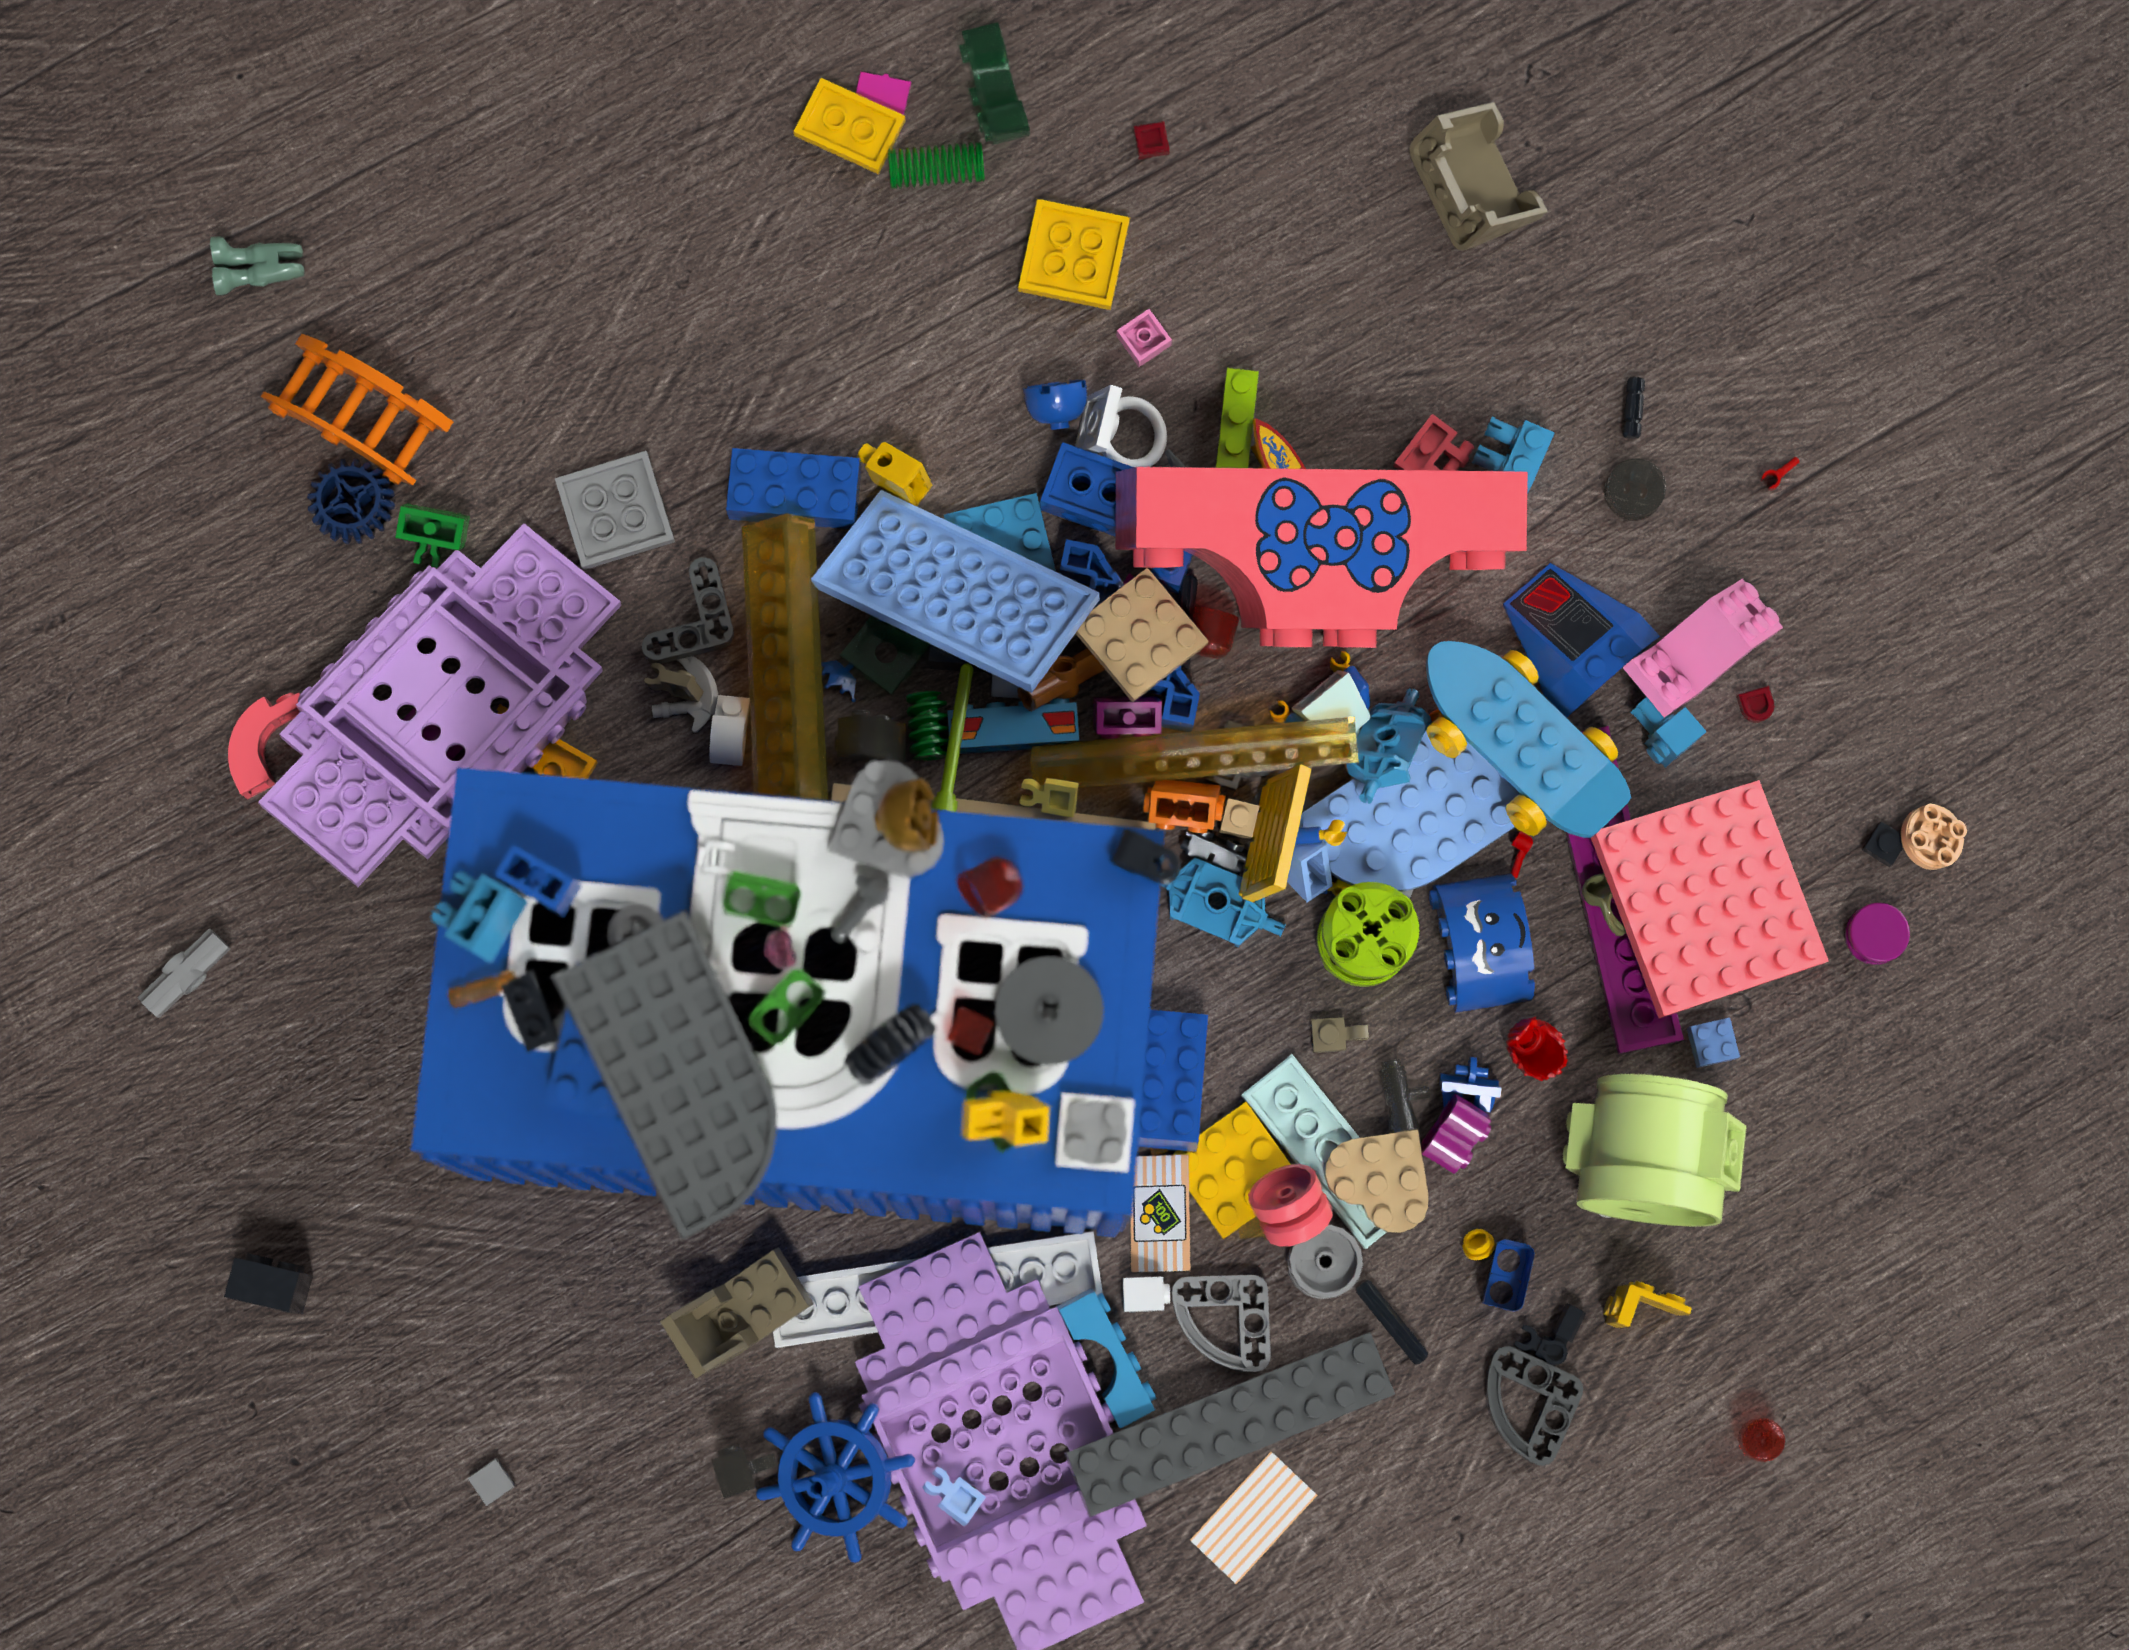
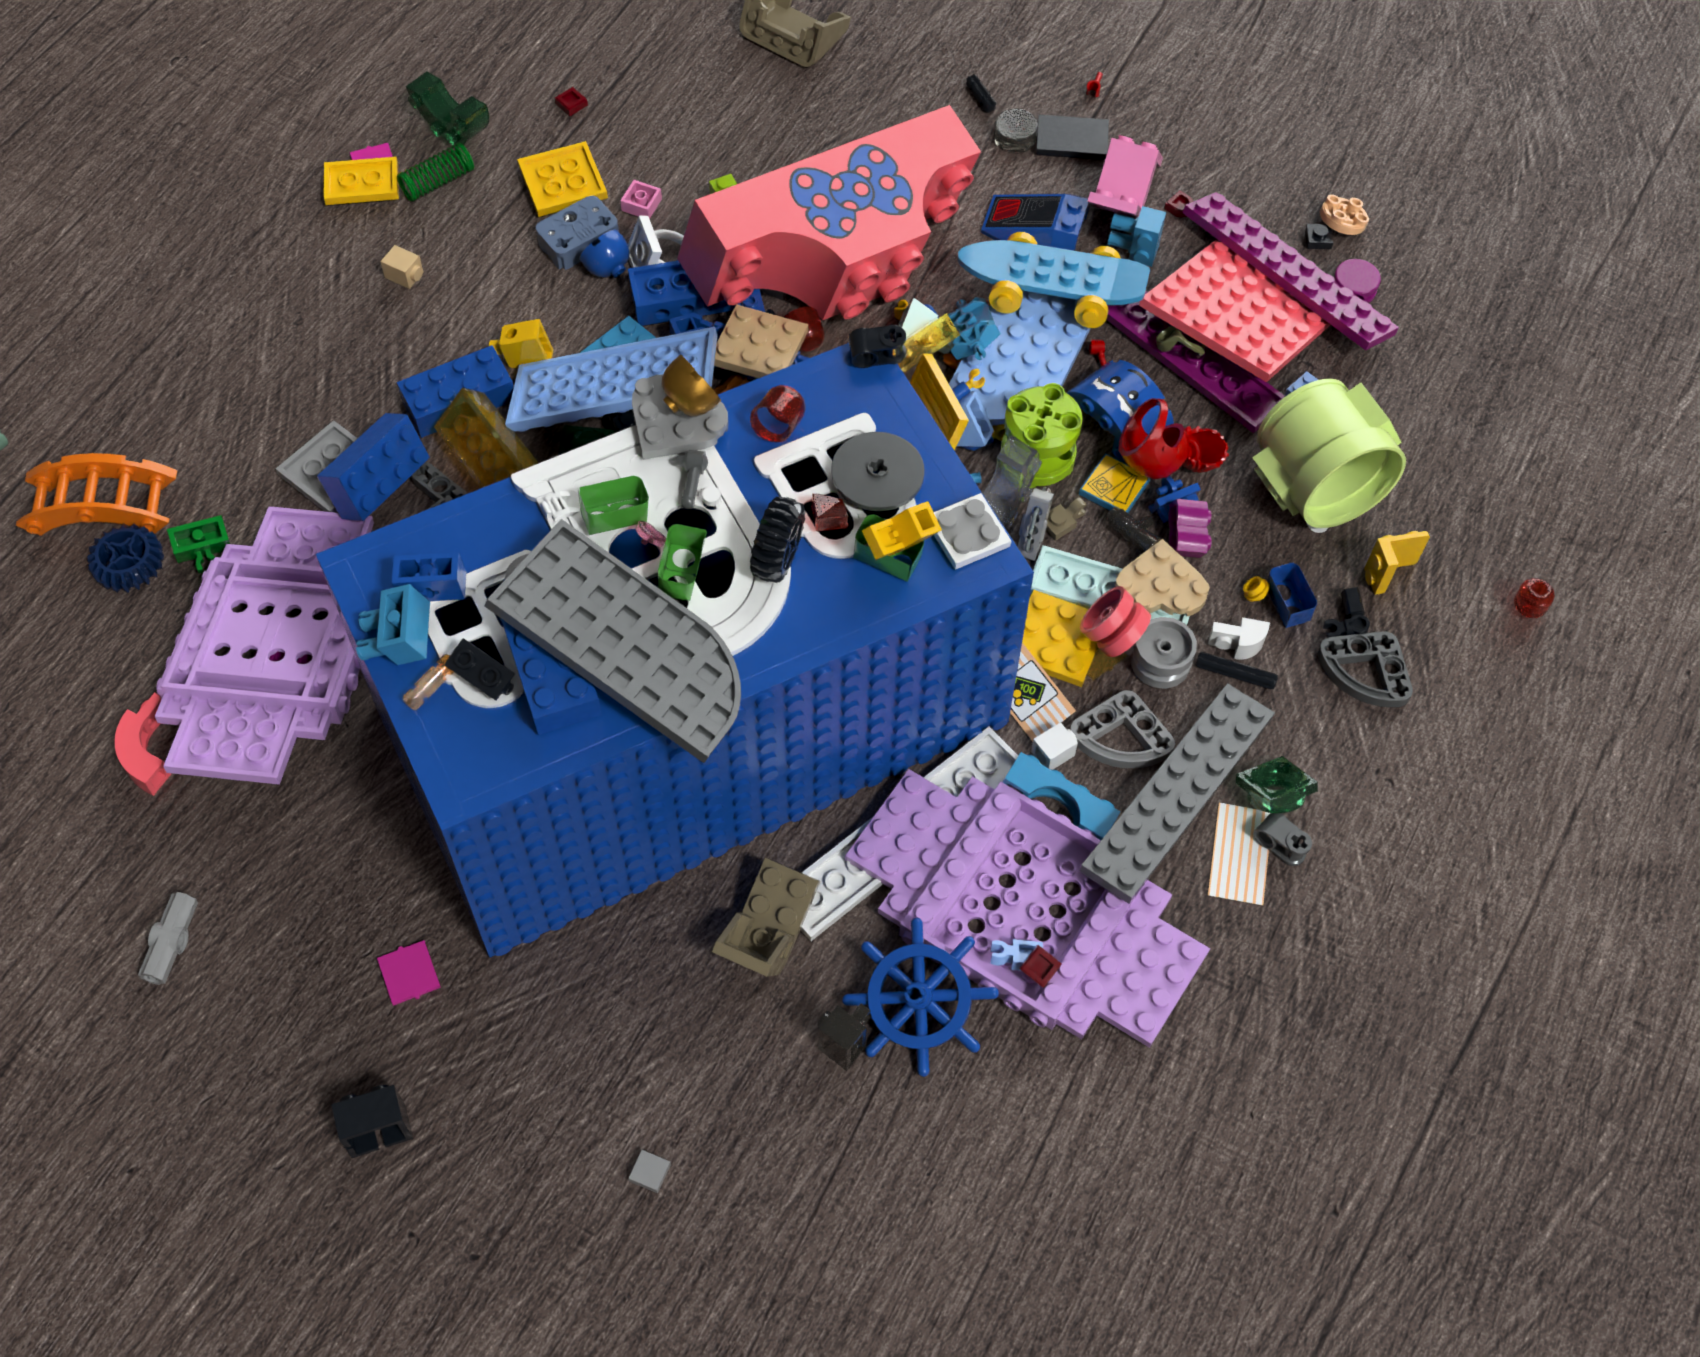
camera: 30 degrees left, 20 degrees down
(385, 1144) = (408, 972): none -> dark pink piece
(648, 551) = (373, 466): none -> blue brick
(828, 280) = (402, 266): none -> tan brick
(961, 1524) = (1040, 966): none -> dark red tile
(1048, 354) = (573, 229): none -> sand blue axle
(1273, 980) = (1012, 479): none -> clear brick
(1287, 1037) = (1034, 523): none -> light grey piece
(1300, 1527) = (1283, 837): none -> dark grey piece
(1341, 1460) = (1276, 773): none -> clear green piece
(1420, 1027) = (1114, 485): none -> yellow tile
(1425, 1297) = (1244, 639): none -> white brick
(1475, 1026) = (1155, 453): none -> red piece
(1698, 535) = (1072, 137): none -> tile
(1809, 875) = (1291, 271): none -> magenta plate

